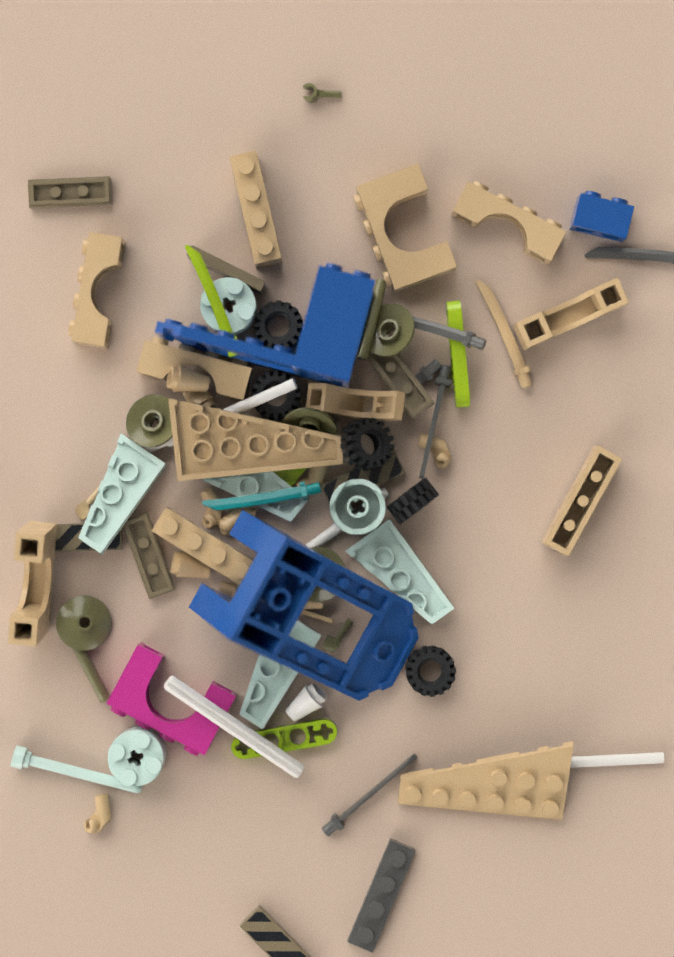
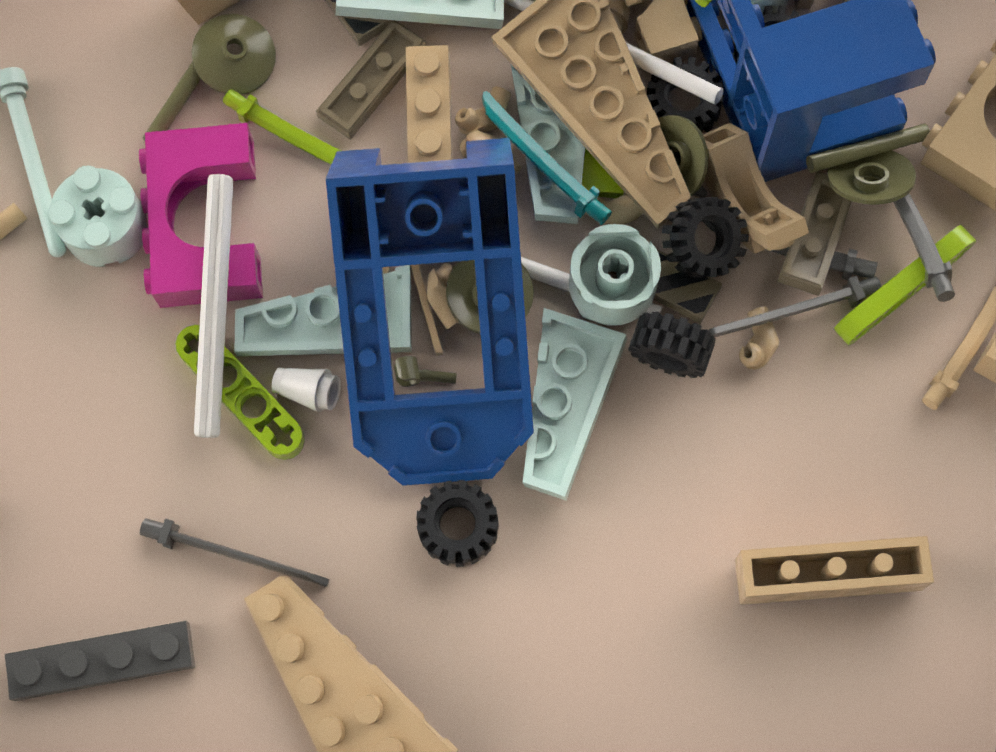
camera: 60 degrees right, 15 degrees down
(122, 635) = (249, 109): none -> lime sword
(187, 566) = (389, 126): tan cone -> none

